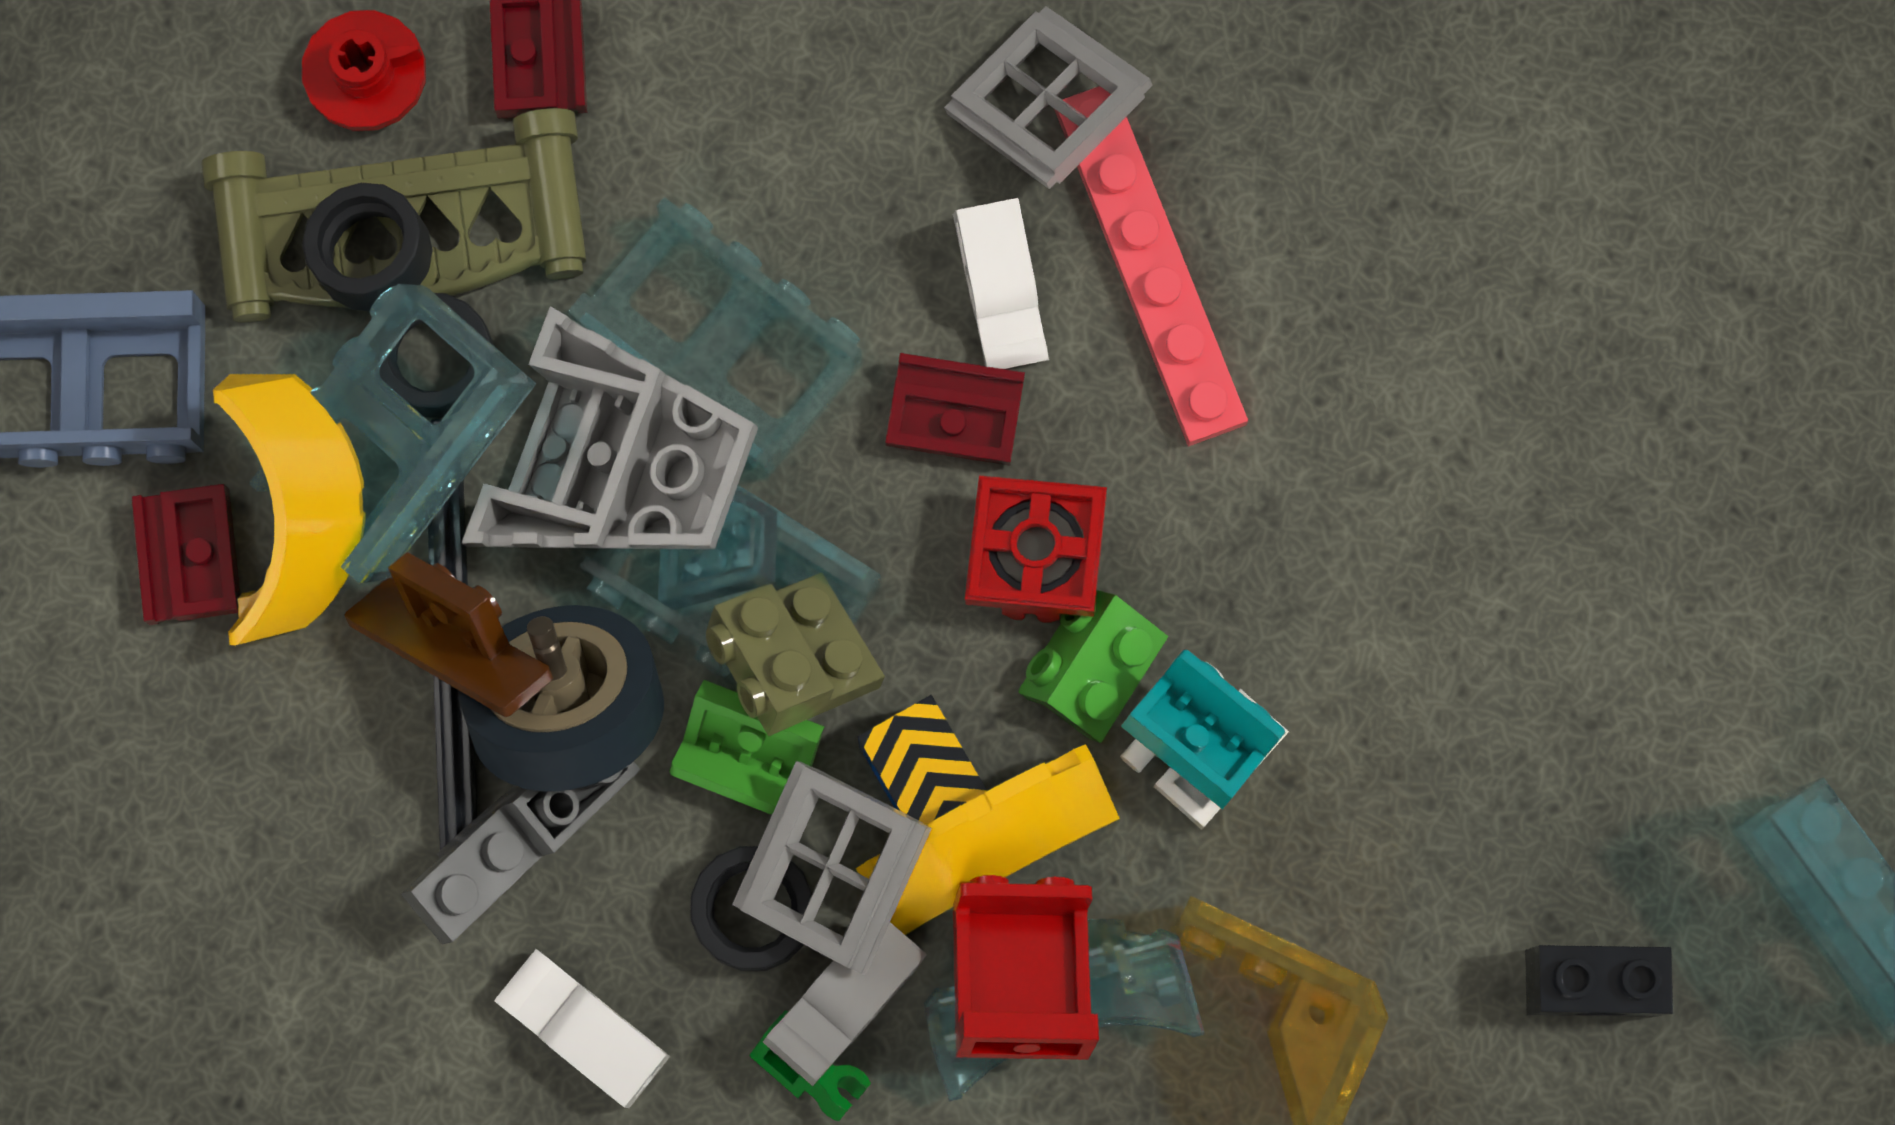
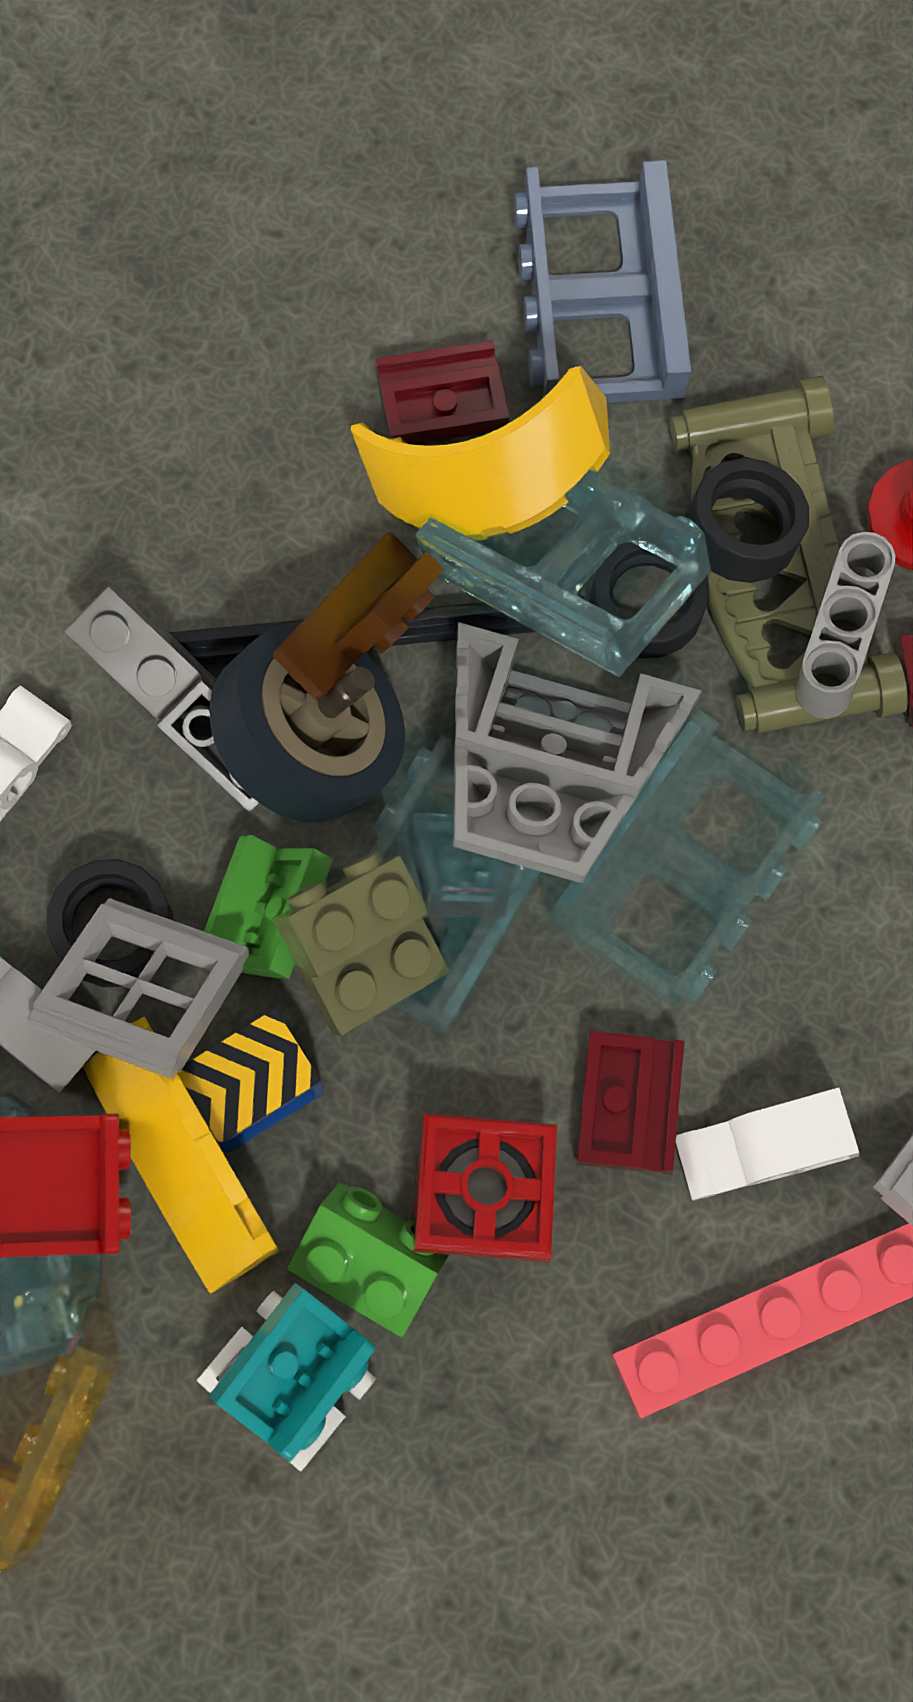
camera: 85 degrees right, 5 degrees down
(467, 141) = (850, 599): none -> light grey beam

